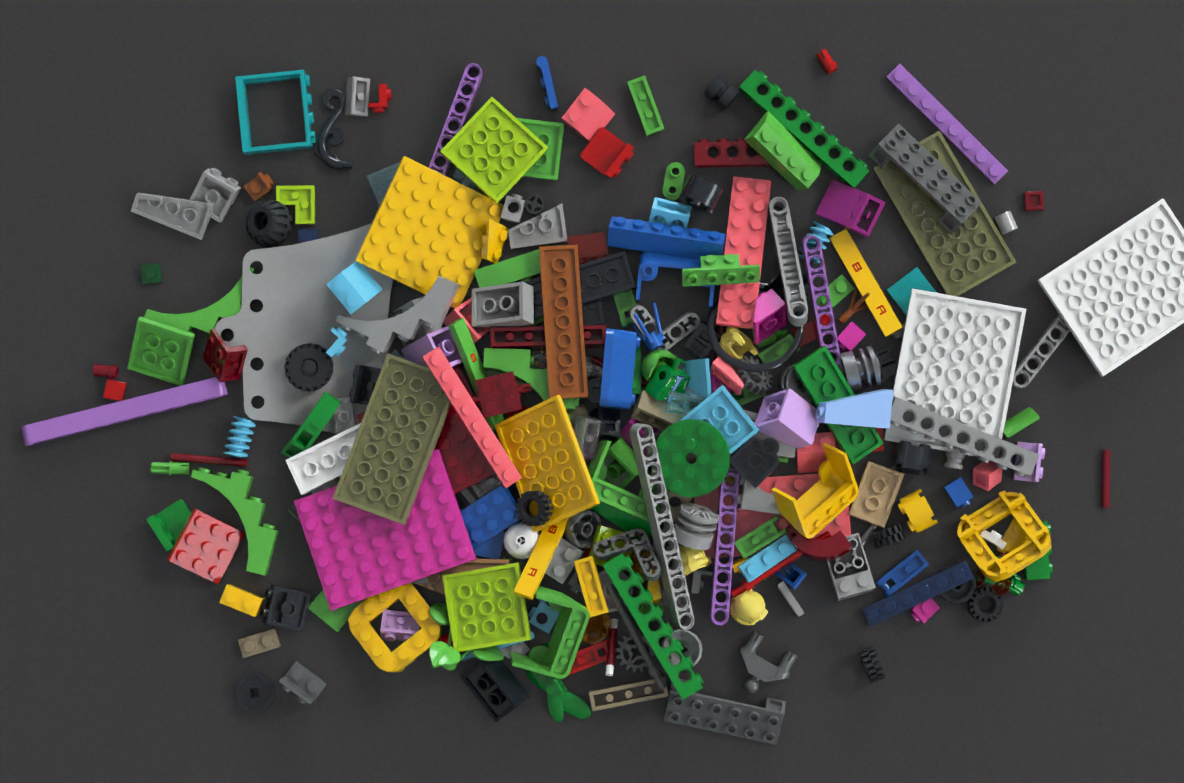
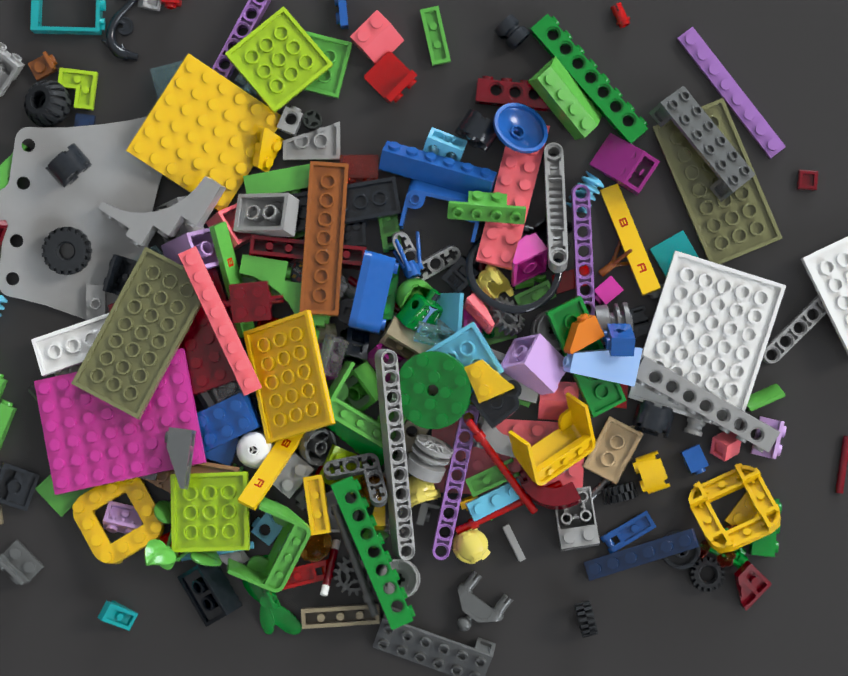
camera: 10 degrees right, 0 degrees up
(299, 283) = (68, 165): none -> black brick
(312, 425) = (62, 308): green slope -> none
(338, 346) = (97, 234): medium azure bracket -> none
(354, 287) = (121, 177): medium azure slope -> none
(407, 722) = (117, 615): none -> teal slope
(450, 548) = (180, 449): none -> dark grey slope
(543, 504) = (260, 419): black tyre -> none
(673, 181) = (452, 113): bright green plate -> none
(743, 187) = (520, 128): none -> blue dish
(743, 442) = (486, 381): none -> yellow wing
(743, 497) = (479, 436): none -> red bar
(791, 575) = (517, 519): blue slope -> none
(832, 382) = (583, 333): none -> orange slope
(838, 290) = (600, 244): bright green plate -> none
(869, 384) = (619, 339): none -> blue brick
(924, 610) = (645, 572): dark pink bracket -> none
(993, 538) = (724, 509): white plate -> none
(1006, 222) = (777, 197): light grey beam -> none
(1029, 609) = (750, 584): none -> dark red wing

